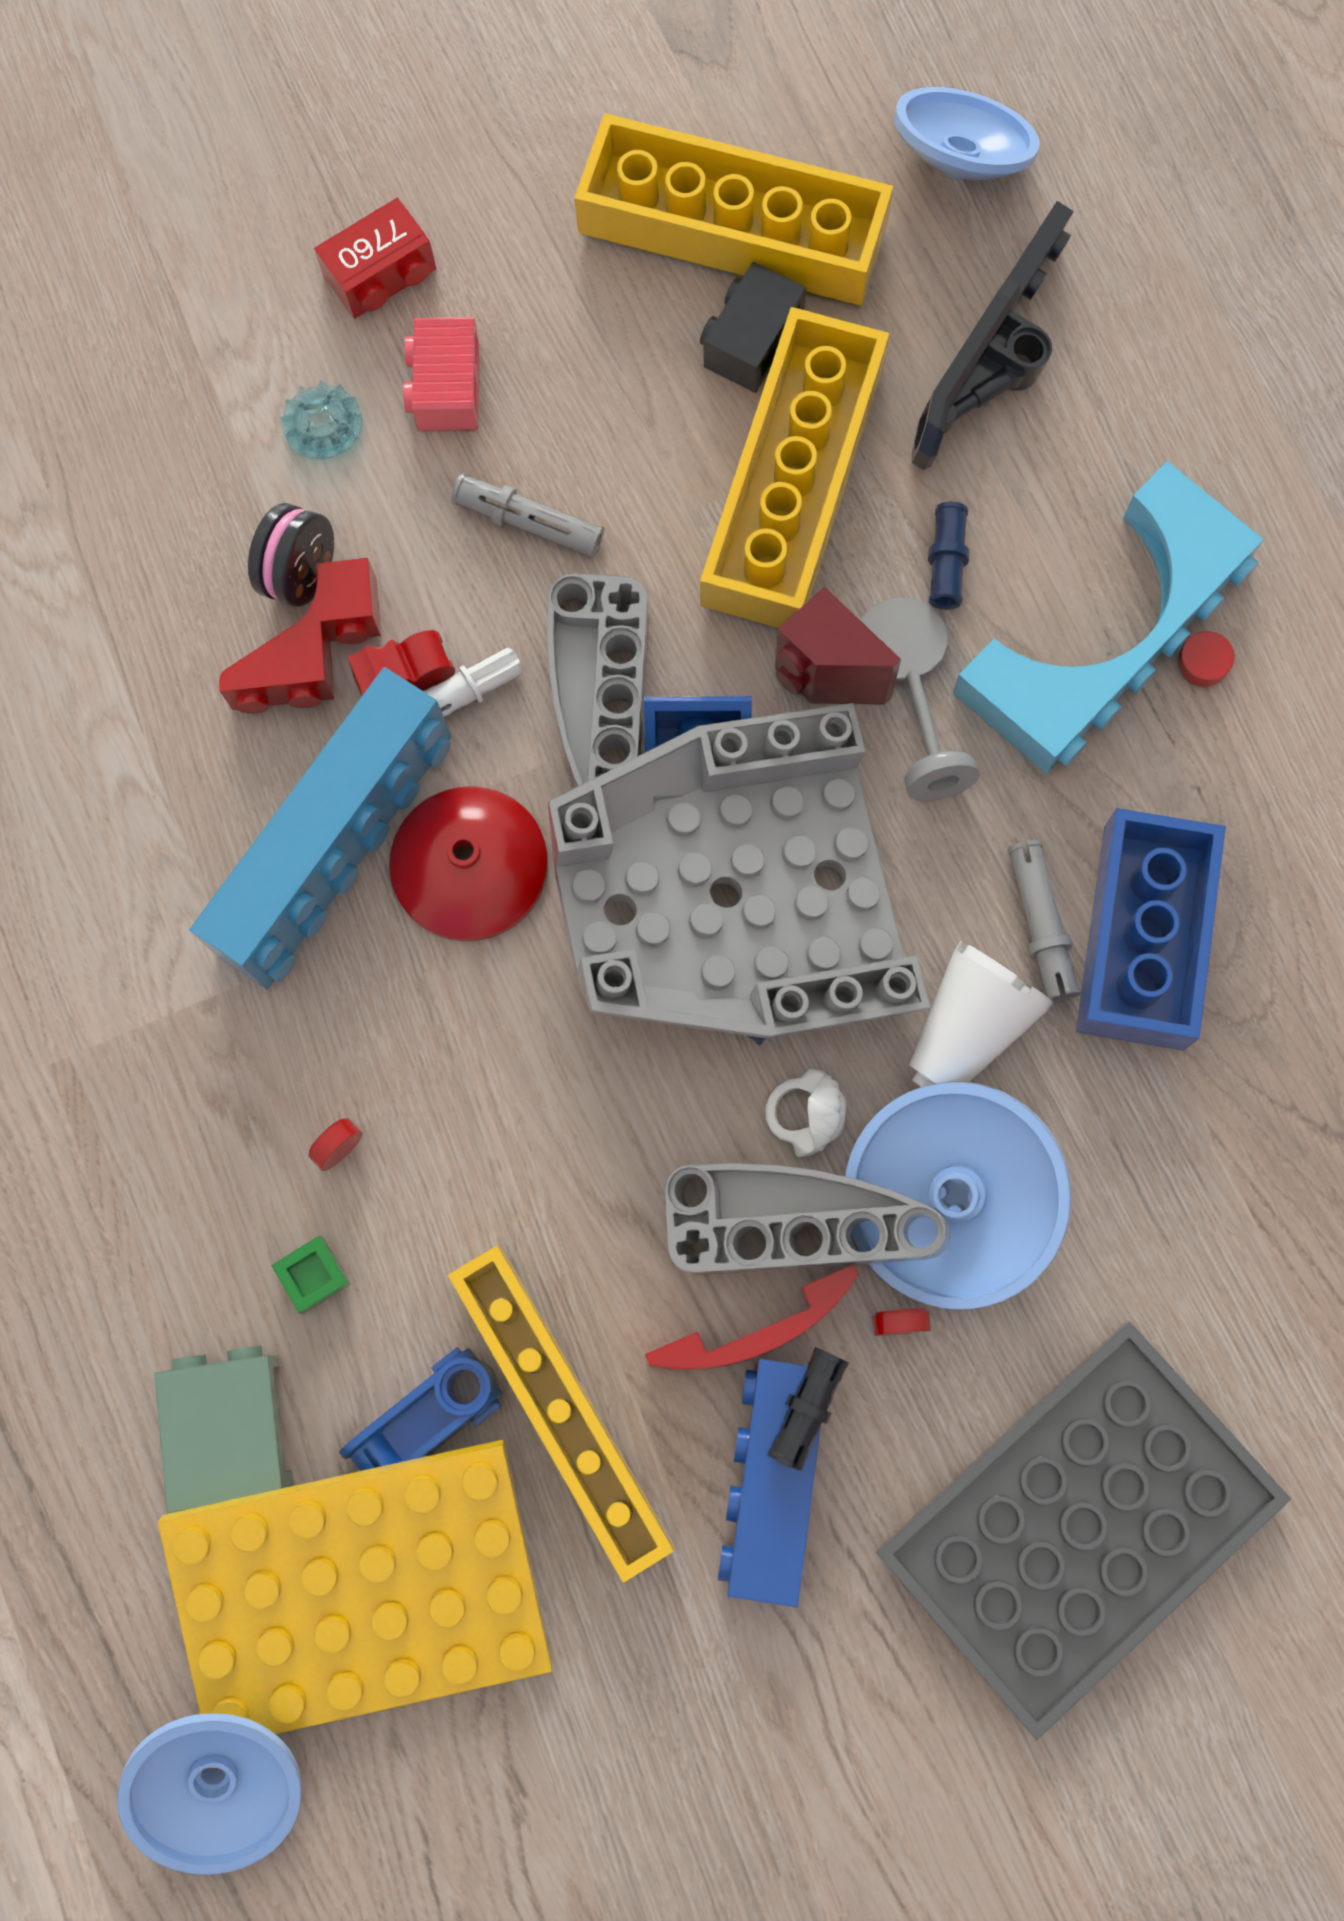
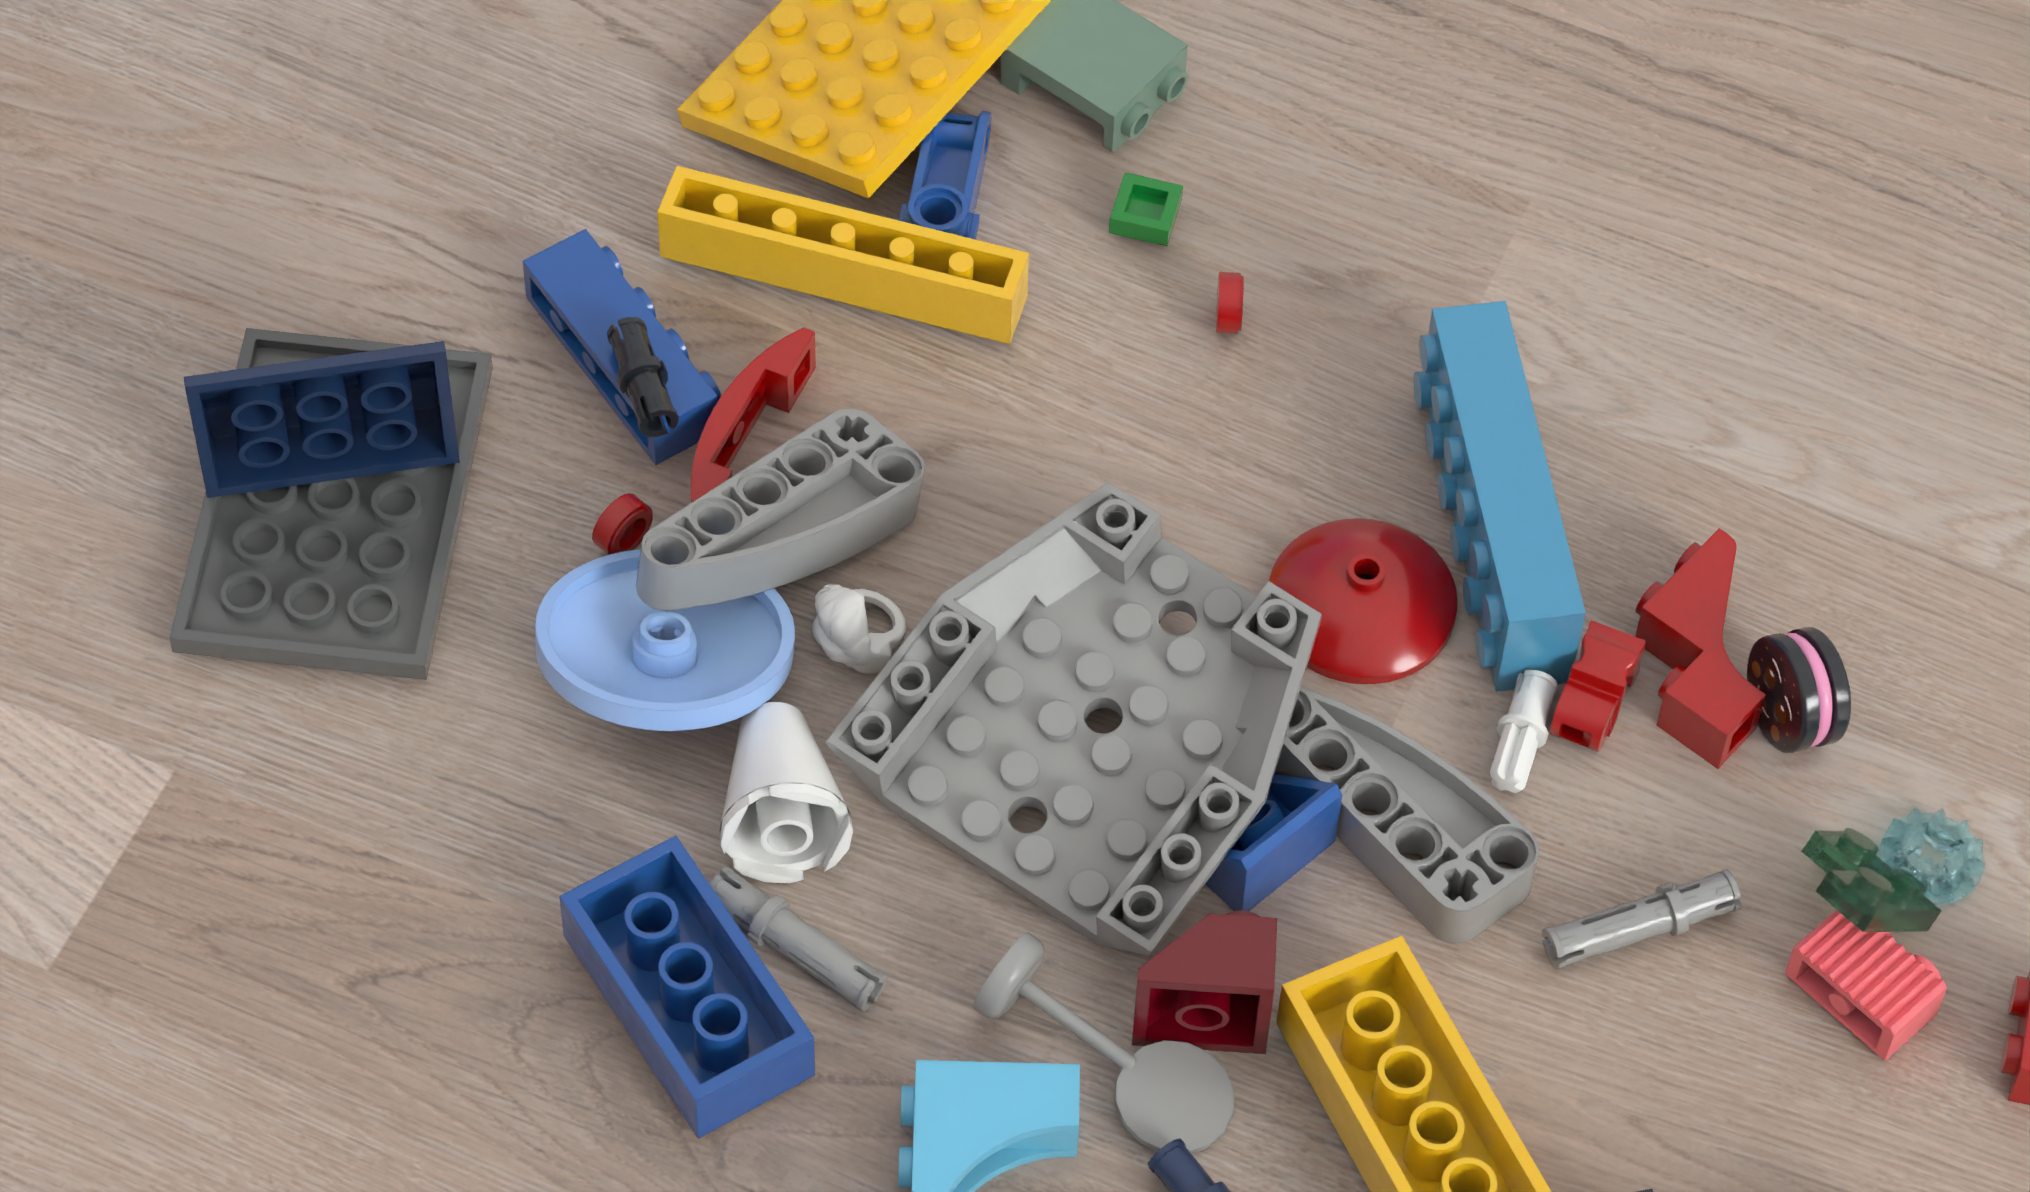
camera: 130 degrees right, 20 degrees down
(383, 400) = (1866, 887): none -> clear green plate
(1075, 1575) = (323, 419): none -> dark blue slope

